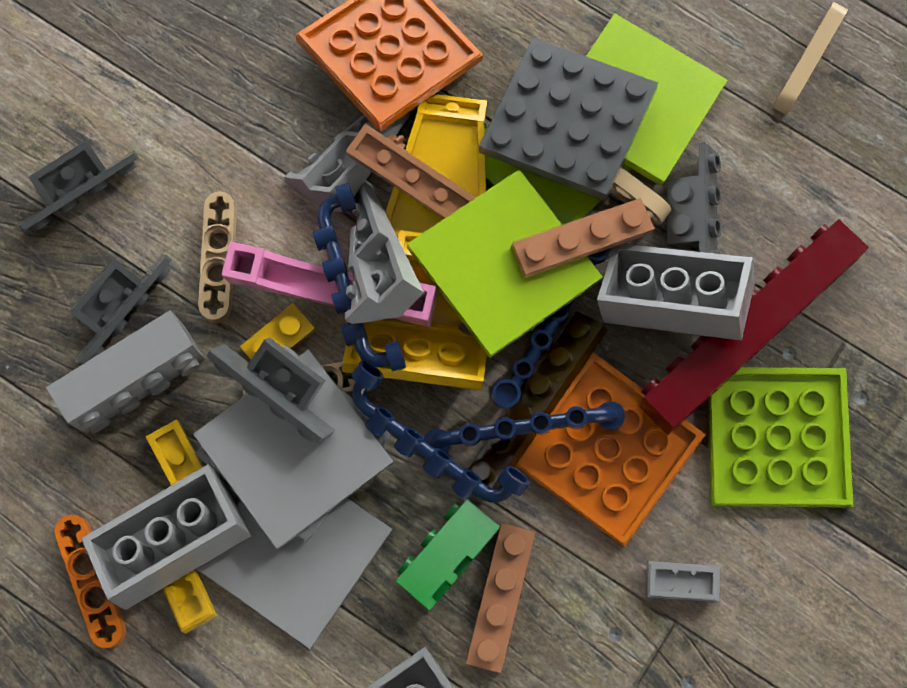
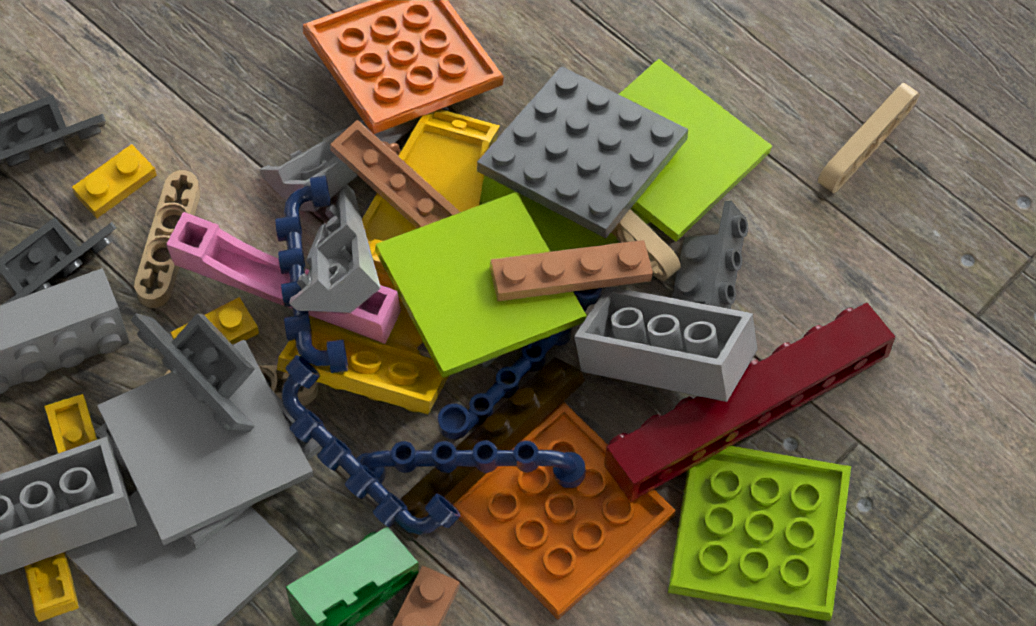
camera: 10 degrees right, 15 degrees down
(158, 210) = (114, 181): none -> yellow plate

